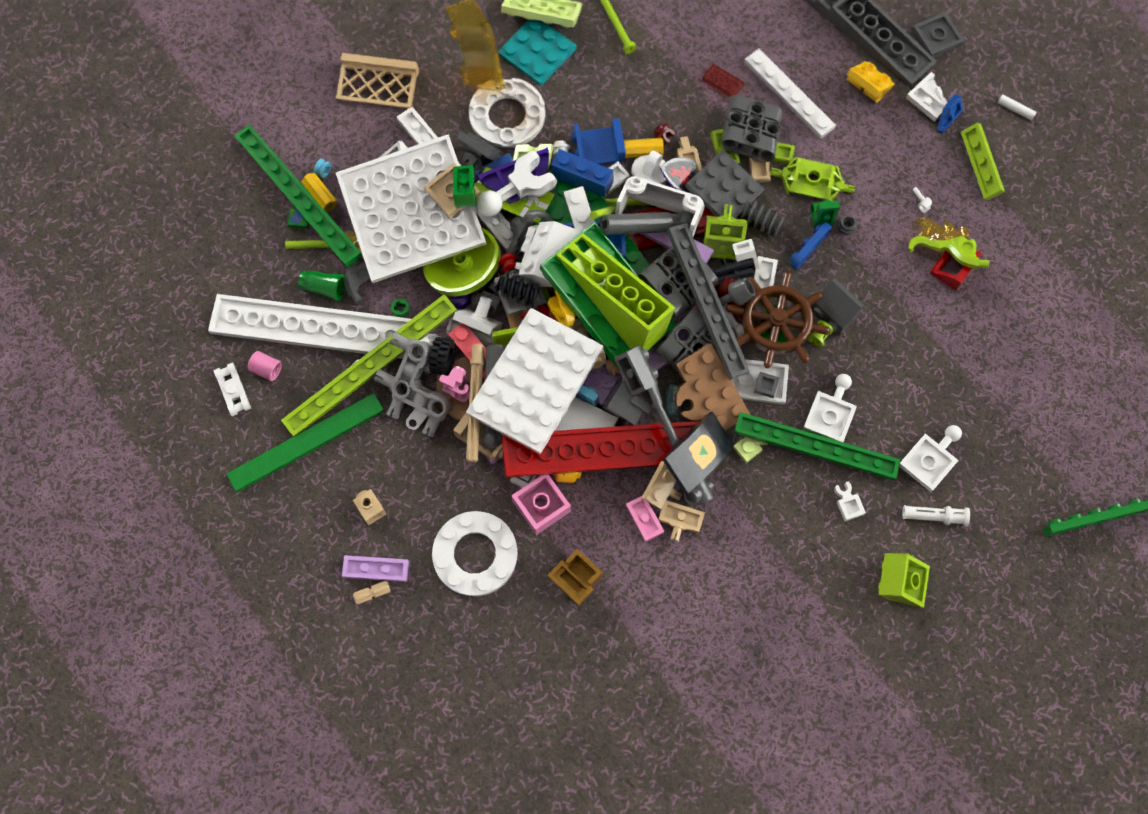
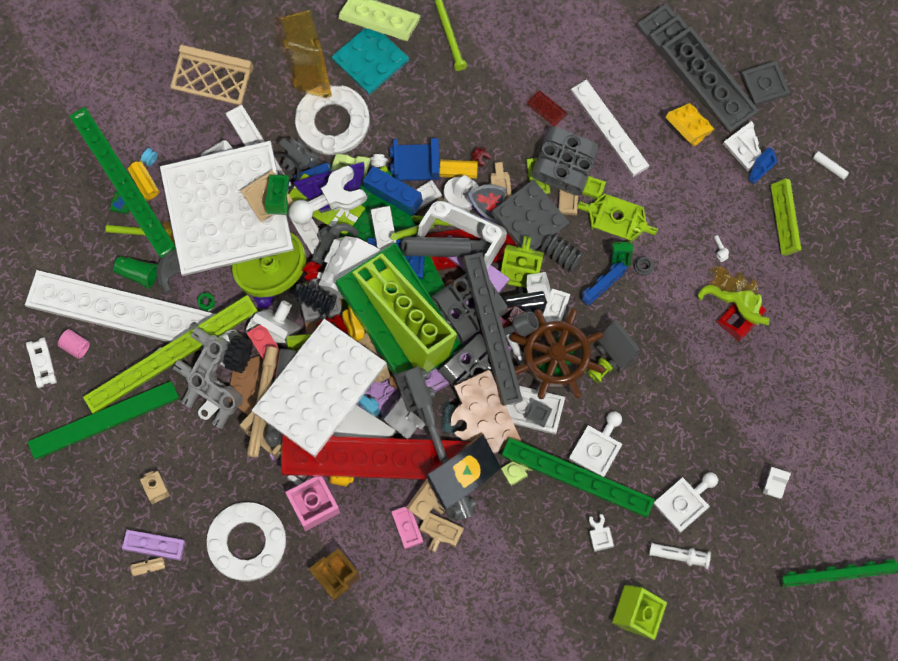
camera: 10 degrees right, 0 degrees up
(456, 384) = (248, 382): bright pink piece -> none
(1021, 427) = (776, 482): none -> white panel

